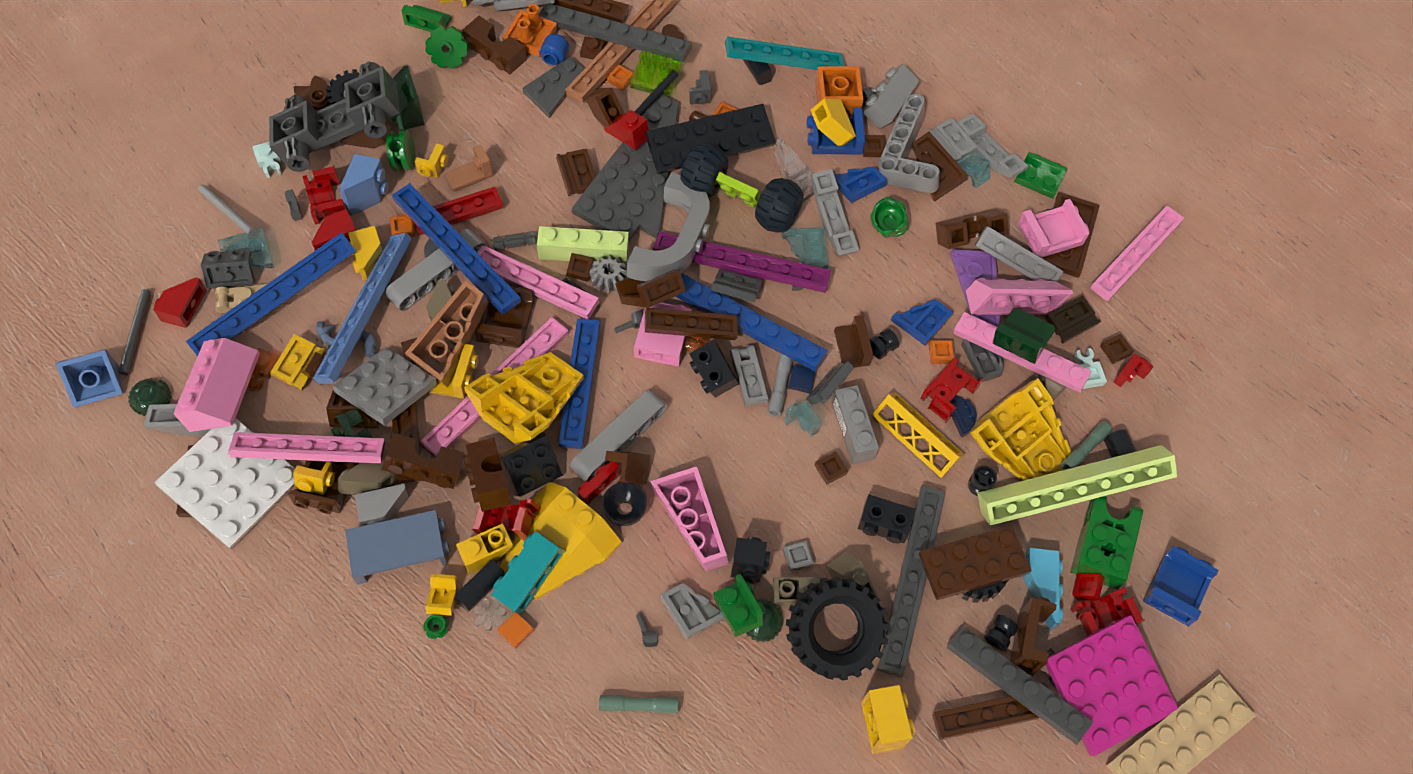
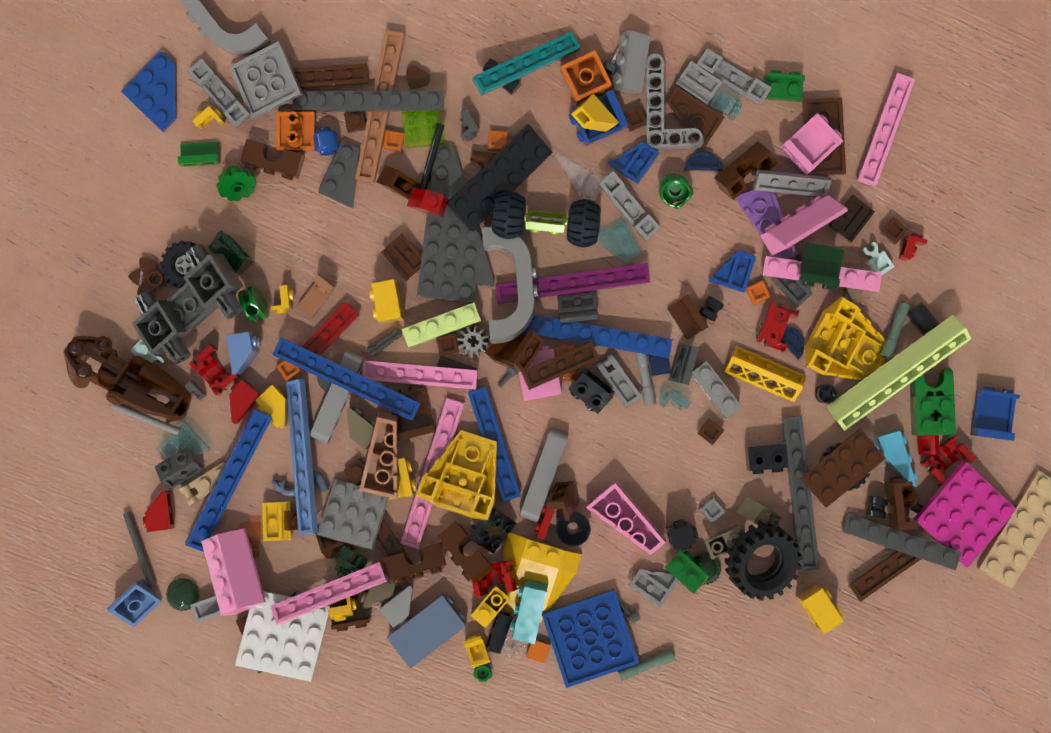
camera: 20 degrees left, 25 degrees up
(225, 161) = (124, 381): none -> reddish brown piece
(537, 197) = (387, 301): none -> yellow brick
(584, 641) = (590, 638): none -> blue plate
(928, 210) = (703, 162): none -> dark blue tile
(1046, 634) = (912, 499): none -> reddish brown bush

